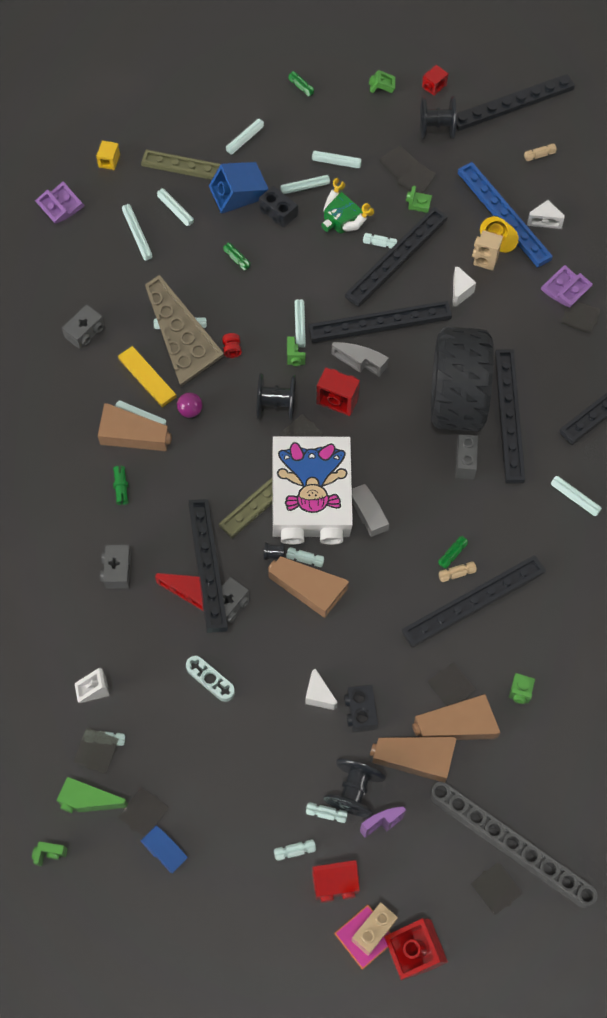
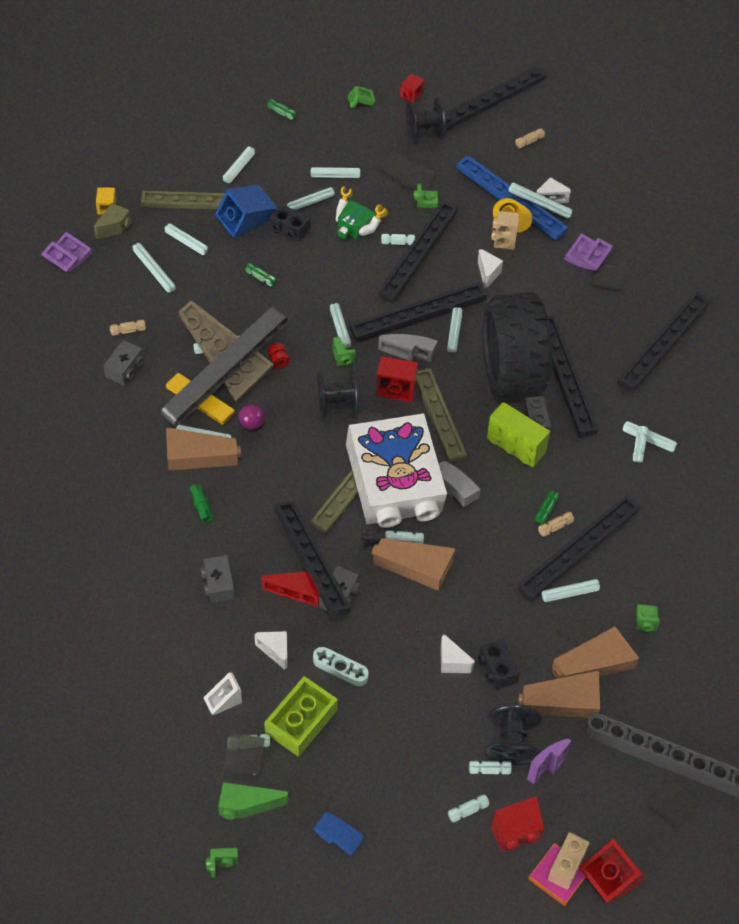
camera: 15 degrees left, 10 degrees down
(97, 290) = (127, 327): none -> tan axle
(108, 178) = (112, 222): none -> olive slope
(153, 645) = (274, 645): none -> white slope
(157, 724) = (301, 716): none -> lime brick
(174, 348) = (224, 366): none -> dark grey beam
(373, 435) = (440, 416): none -> olive tile
(410, 347) = (454, 330): none -> light aqua axle
(442, 472) = (518, 434): none -> lime brick
(453, 644) = (570, 590): none -> light aqua axle
(532, 223) = (540, 200): none -> light aqua axle
(563, 503) = (640, 444): none -> light aqua axle

